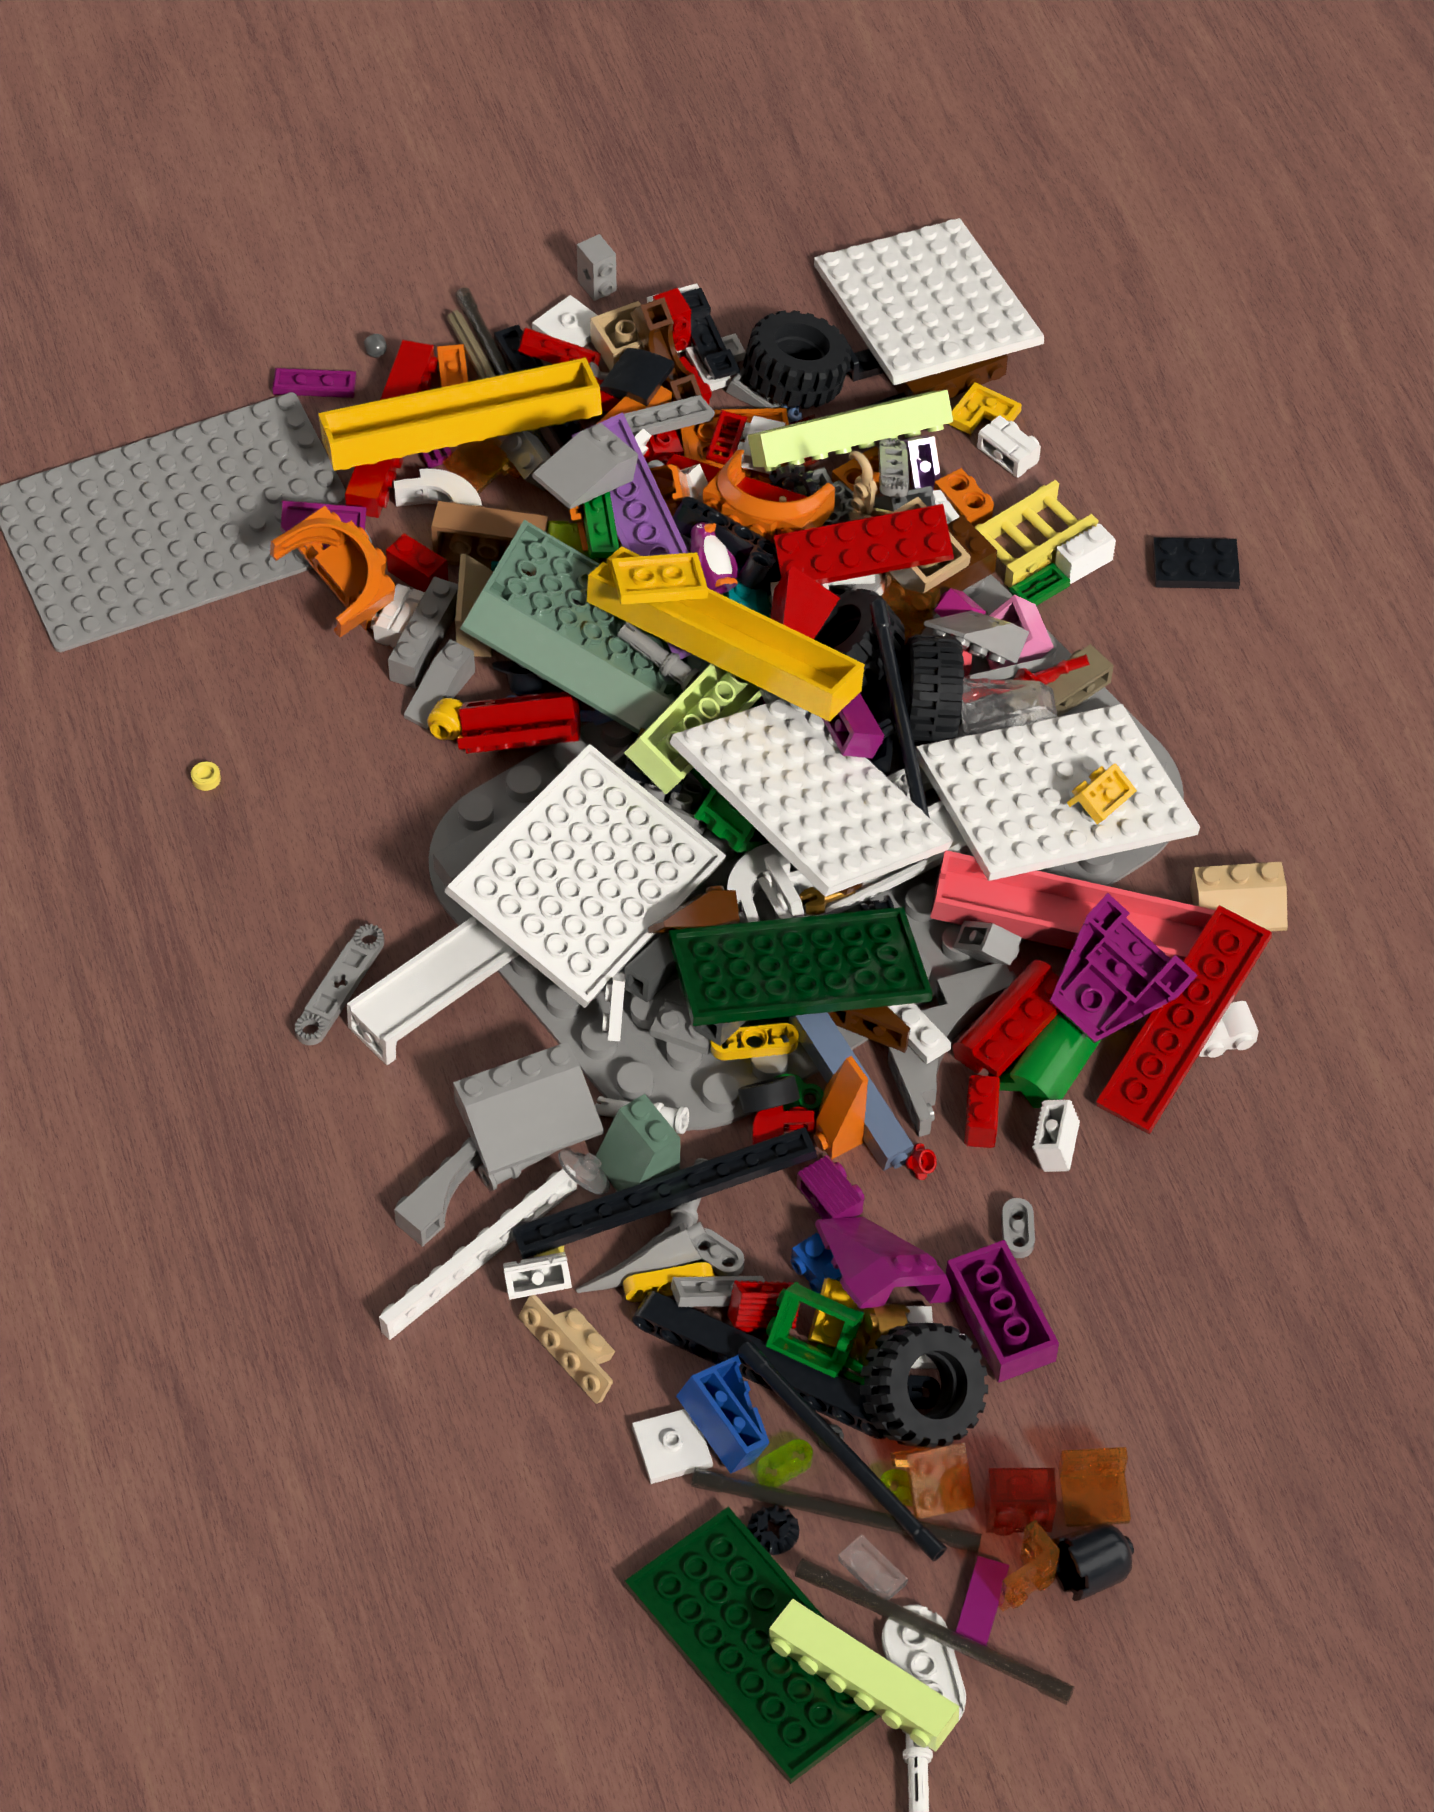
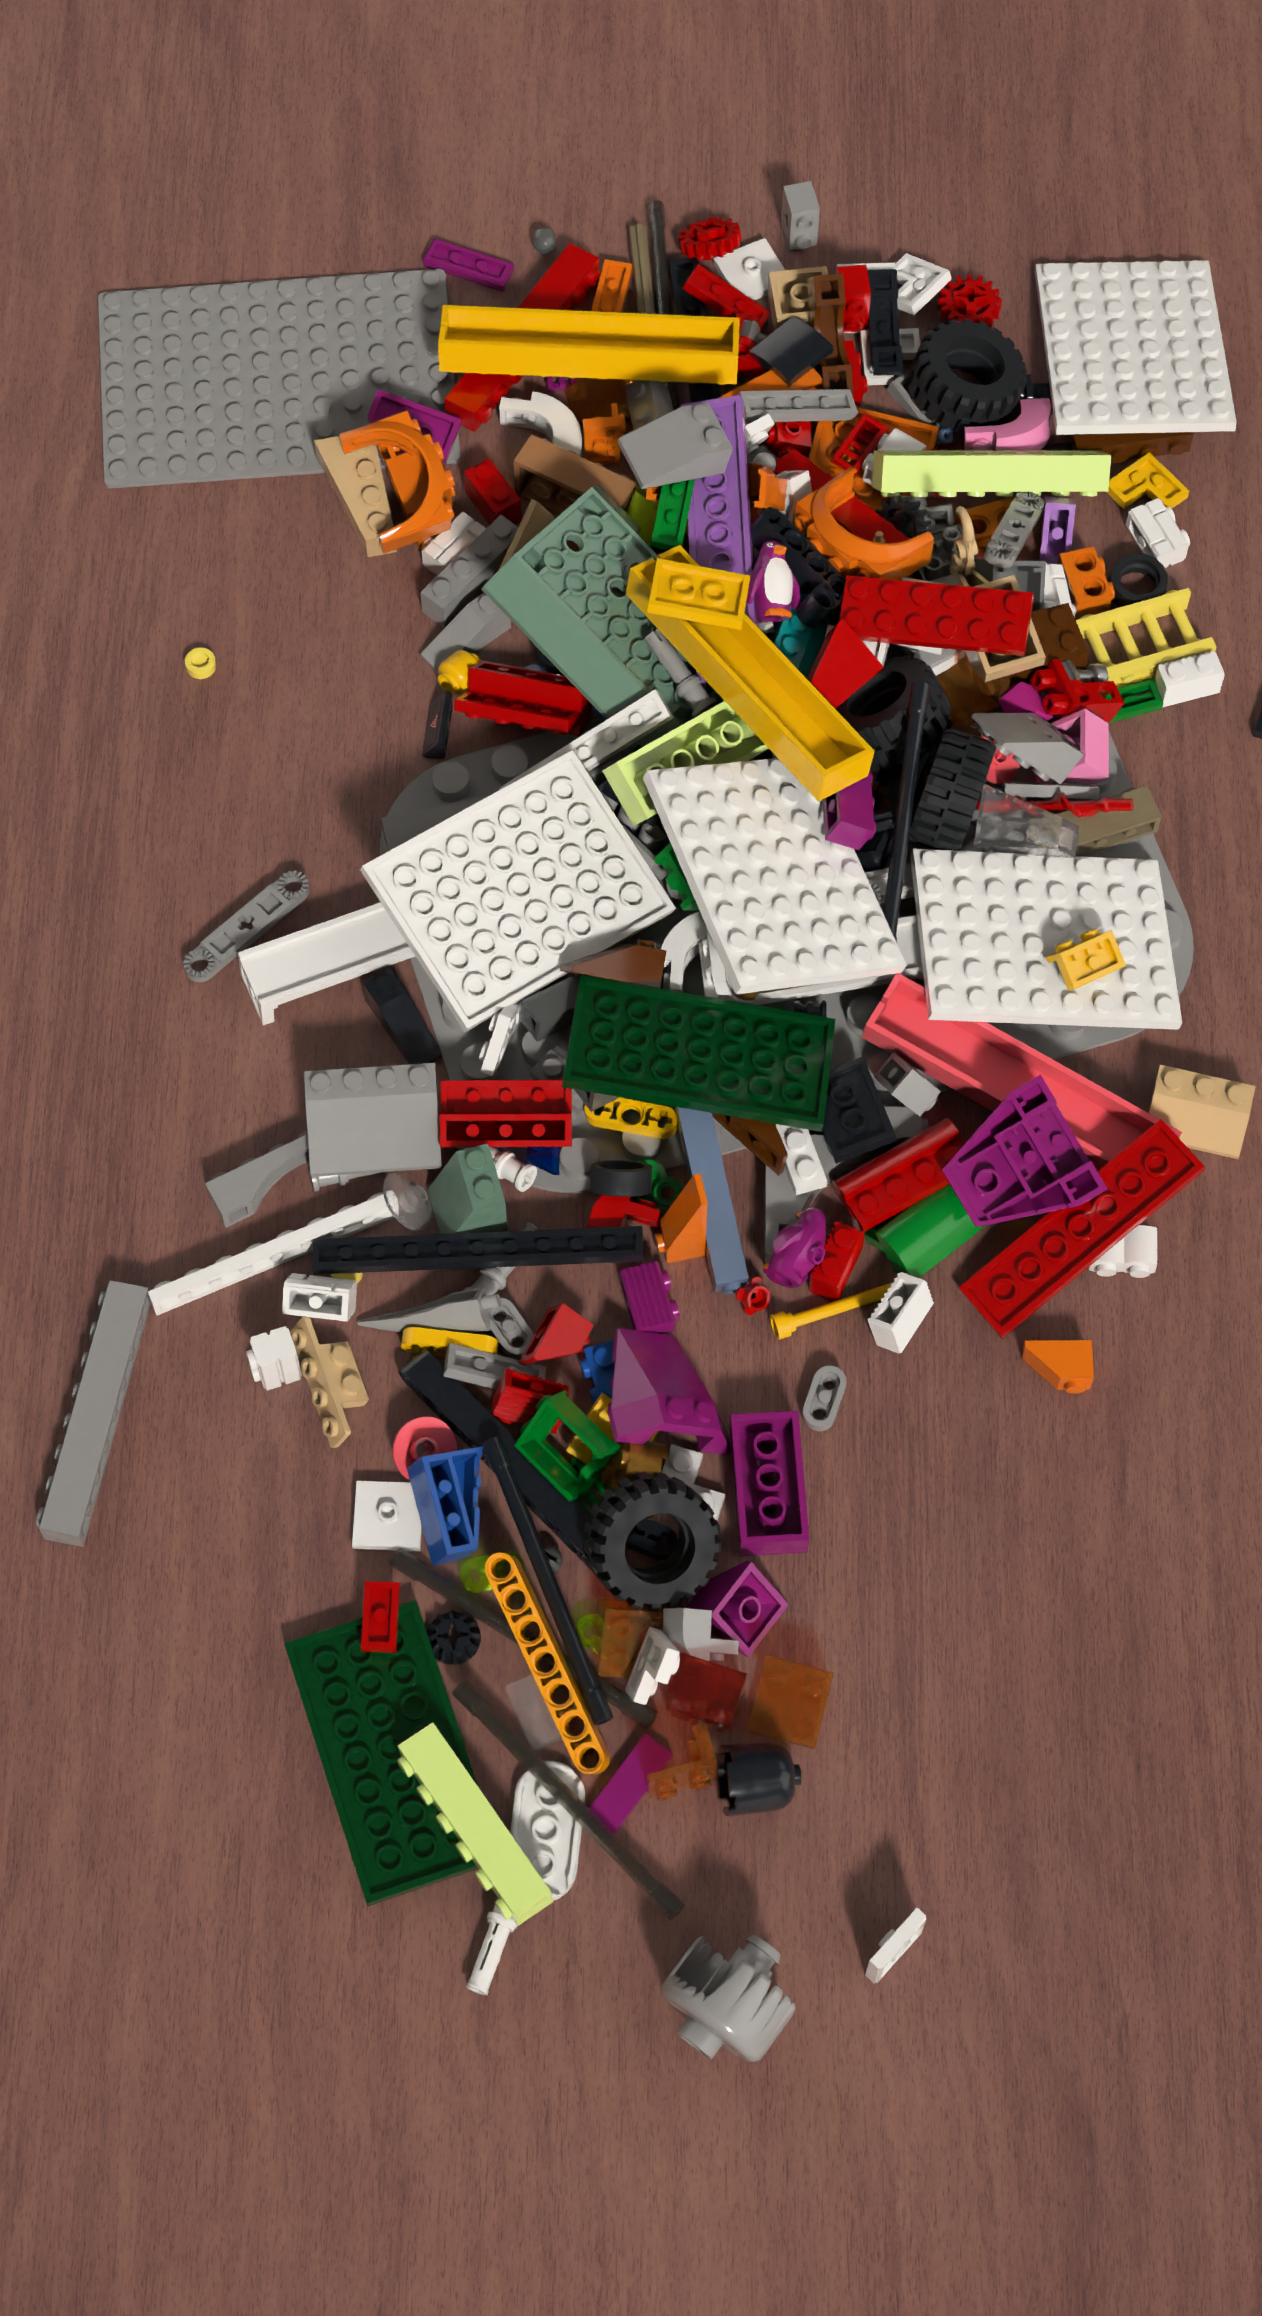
camera: 20 degrees right, 10 degrees up
(296, 590) = (359, 488): none -> tan wedge
(370, 1439) = (95, 1414): none -> light grey brick
(445, 769) = (438, 727): none -> black slope
(499, 487) = (602, 437): none -> orange bracket
(509, 1019) = (400, 1018): none -> black slope
(519, 1338) = (274, 1358): none -> white brick
(523, 306) = (709, 238): none -> red gear
(616, 724) = (613, 734): none -> white plate
(646, 1066) = (505, 1113): none -> red brick
(682, 1361) = (427, 1430): none -> coral dish
(691, 1095) = (544, 1158): none -> clear blue slope
(705, 1528) = (380, 1617): none -> red plate
(722, 295) = (920, 282): none -> white plate
(764, 1244) = (557, 1336): none -> red slope
(769, 298) = (970, 301): none -> red gear
(864, 391) = (1027, 432): none -> bright pink arch
(865, 1504) = (534, 1651): none -> light orange beam
(948, 1107) = (798, 1249): none -> magenta animal
(954, 980) = (854, 1112): none -> black plate
(958, 1176) = (785, 1323): none -> yellow piece
(964, 1482) = (654, 1664): none -> white plate
(987, 1450) = (691, 1634): none -> light grey brick
(996, 585) = (1074, 690): none -> red hips
(1012, 474) = (1138, 564): none -> black tyre
(1016, 1423) = (741, 1605): none -> magenta slope
(1160, 1753) = (729, 2000): none -> light grey piece
(1210, 1137) = (1062, 1363): none -> orange slope
(1271, 1659) = (895, 1945): none -> white plate

